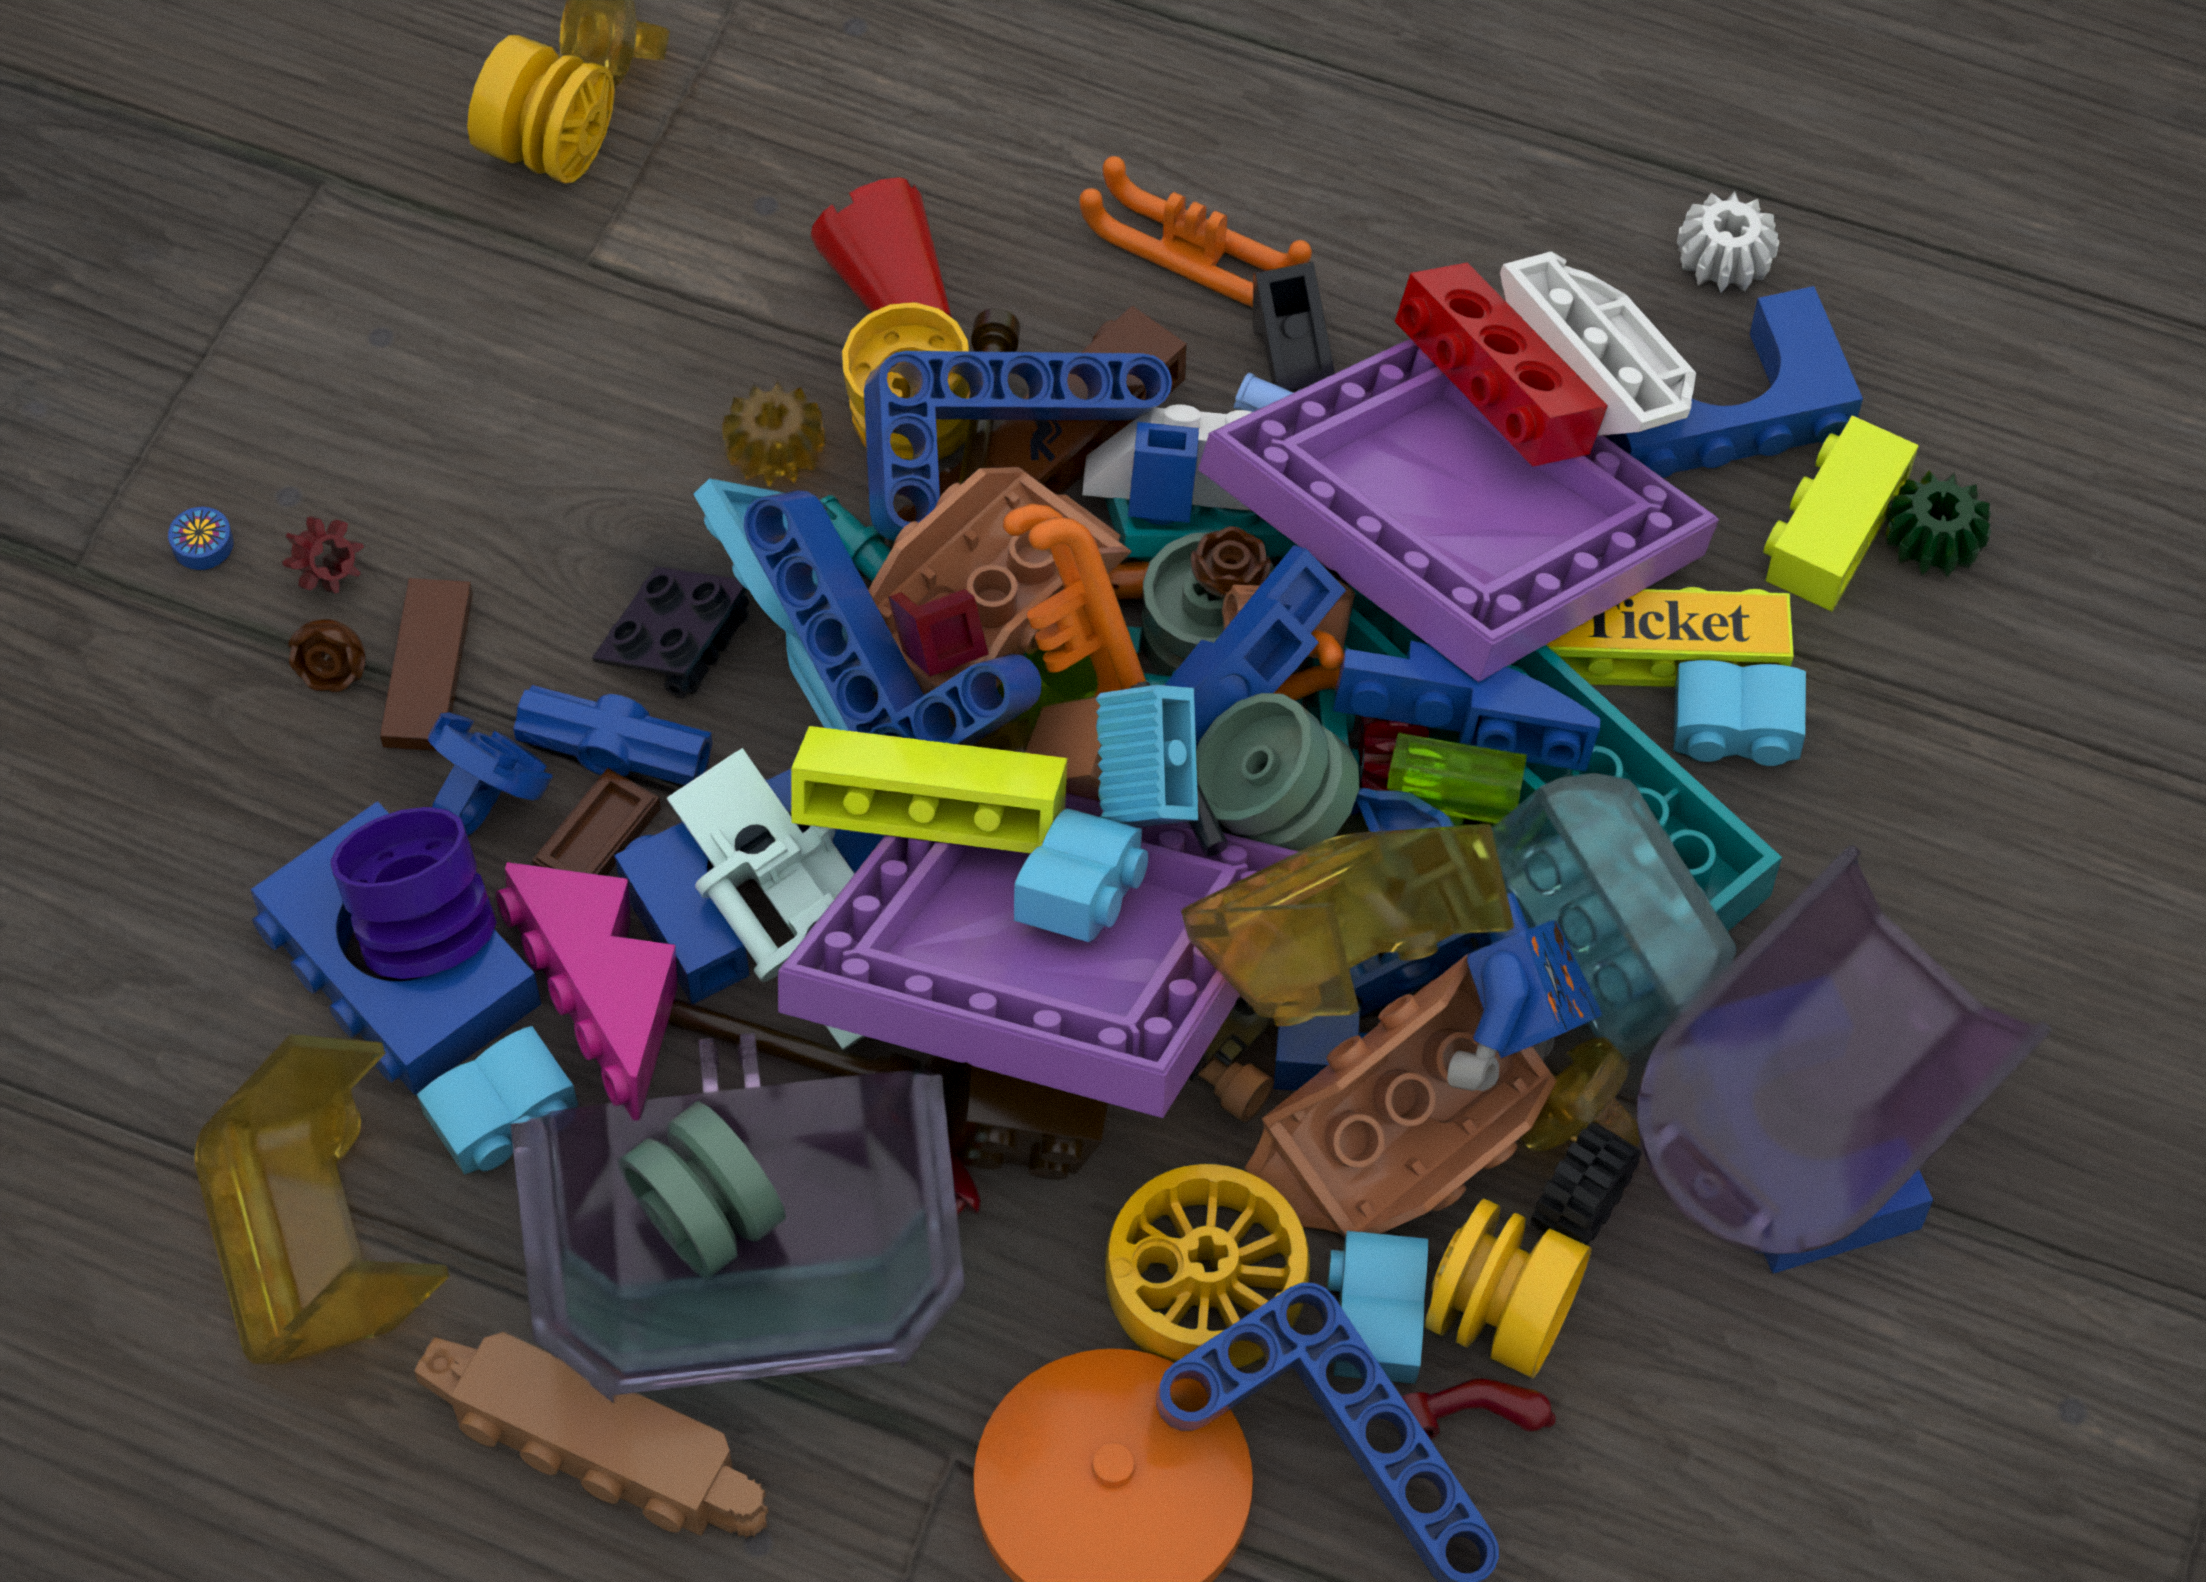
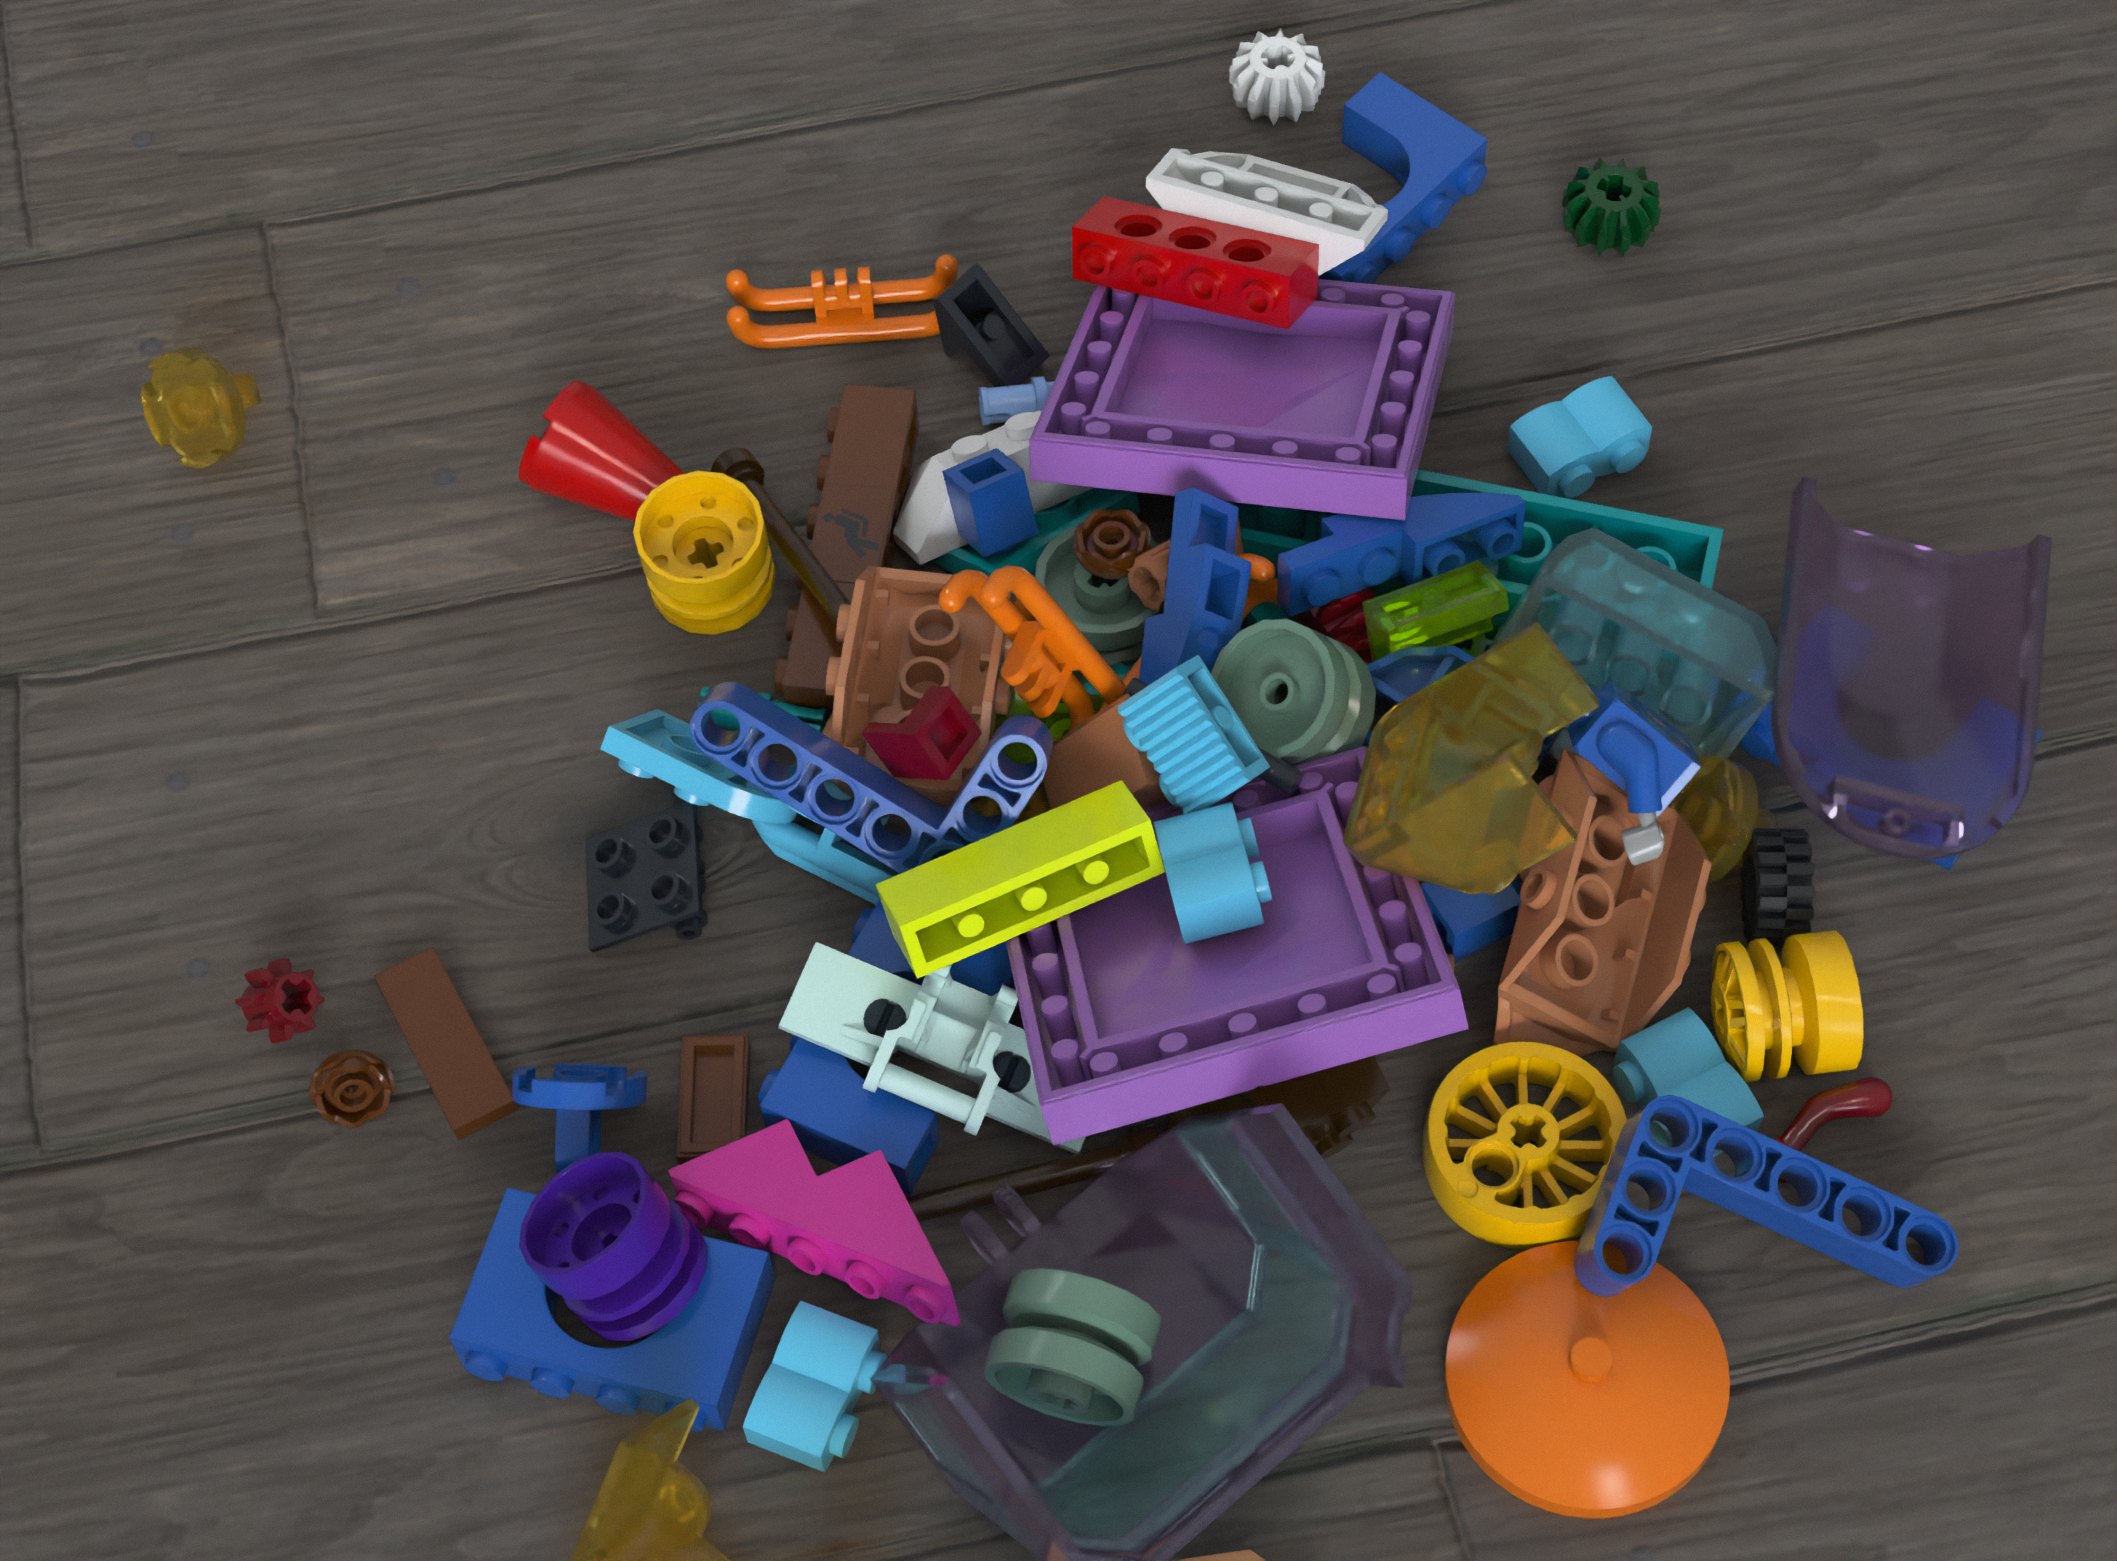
camera: 30 degrees left, 0 degrees up
(200, 538) = (145, 1053): tile -> none
(540, 108) = (179, 499): yellow wheel -> none
(612, 735) = (667, 1004): blue piece -> none
(773, 433) = (609, 663): clear yellow gear -> none
(988, 400) = (800, 518): blue beam -> none
(1658, 629) = (1493, 392): brick -> none
(1838, 512) = (1530, 240): neon yellow brick -> none

